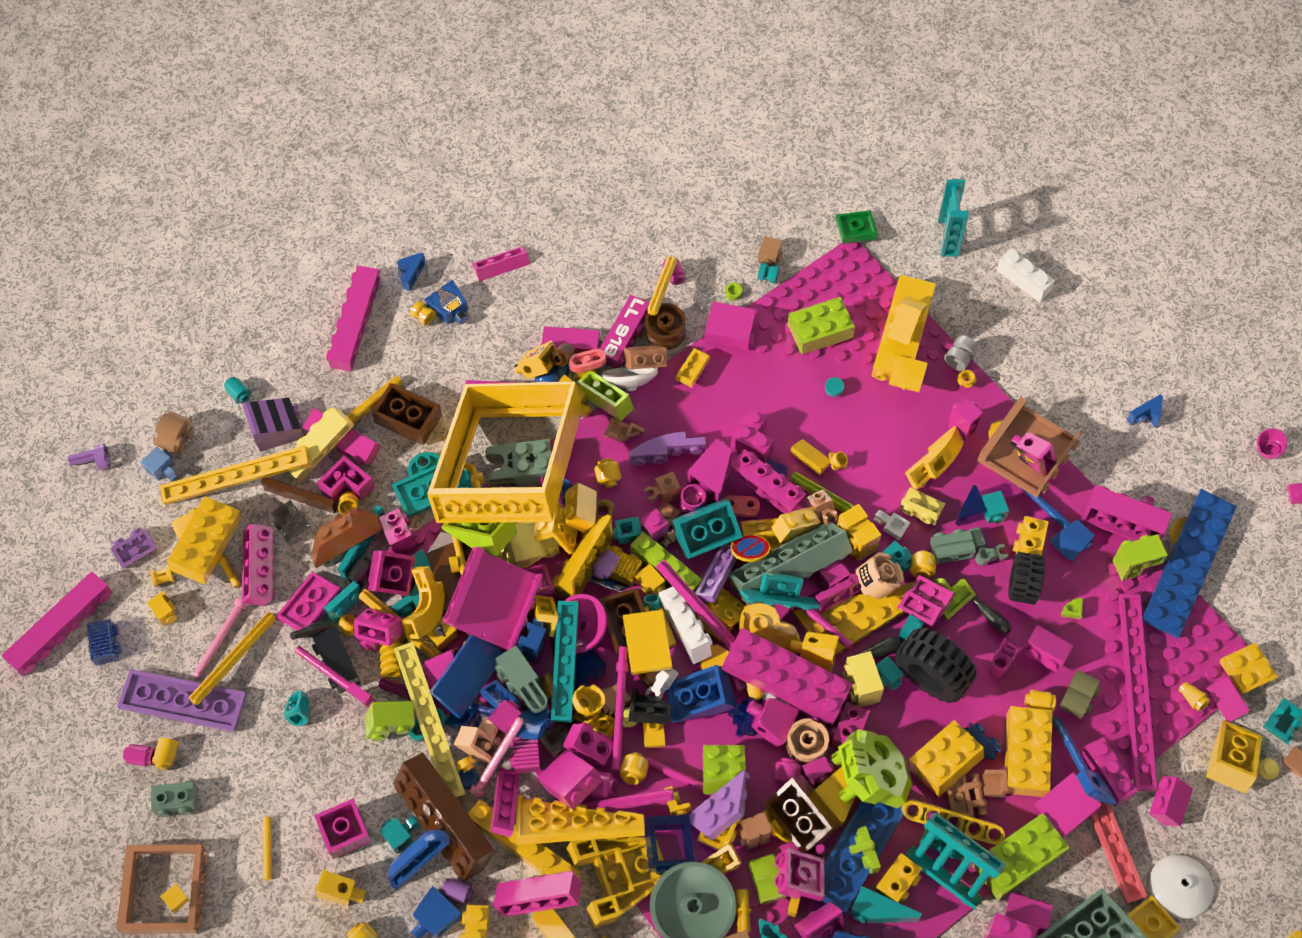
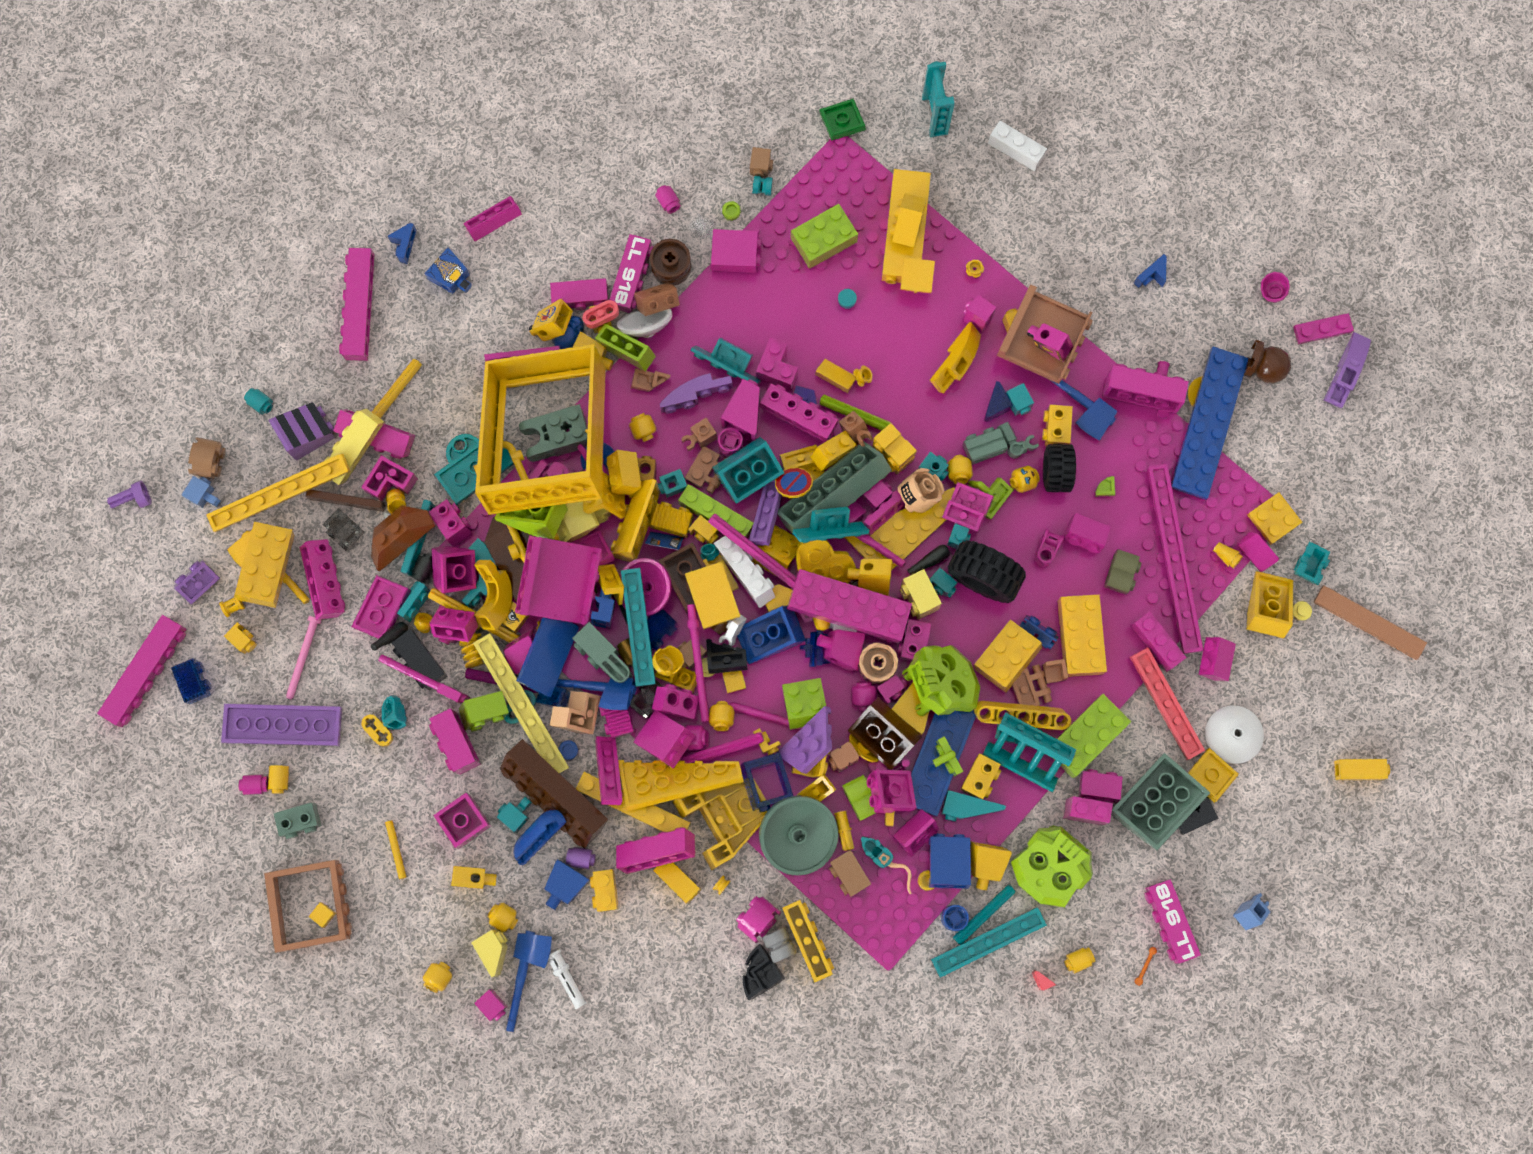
camera: 10 degrees left, 15 degrees up
(232, 658) = (320, 675): yellow axle -> none
(280, 721) = (374, 733): none -> yellow beam
(352, 746) = (454, 741): none -> dark pink brick
(407, 413) = (433, 398): reddish brown brick -> none
(421, 312) = (426, 287): yellow wheel -> none
(466, 763) = (564, 739): yellow plate -> none
(477, 789) = (580, 760): bright pink bar -> none
(495, 693) = (583, 671): blue plate -> none
(505, 715) = (592, 691): dark pink brick -> none
(562, 354) = (575, 311): reddish brown brick -> none
(605, 565) = (658, 525): medium lavender brick -> none
(654, 525) = (698, 476): dark pink brick -> none
(662, 285) = (660, 219): yellow axle -> none
(693, 367) = (705, 302): yellow plate -> none
(705, 420) = (728, 357): none -> teal bracket
(740, 505) = (776, 437): coral plate -> none
(894, 525) = (926, 433): white plate -> none
(922, 506) = (950, 409): light yellow bracket -> none
(961, 353) = (966, 241): light grey wheel -> none
(989, 585) = (1024, 479): none -> yellow head
(993, 617) = (1033, 510): pearl dark grey piece -> none
(1040, 700) = (1086, 584): yellow brick -> none
(1067, 806) = (1125, 680): dark pink brick -> none
(1090, 781) = (1144, 658): blue piece -> none
(1137, 555) = (1159, 428): lime brick -> none
(1258, 515) = (1268, 363): none -> reddish brown tile

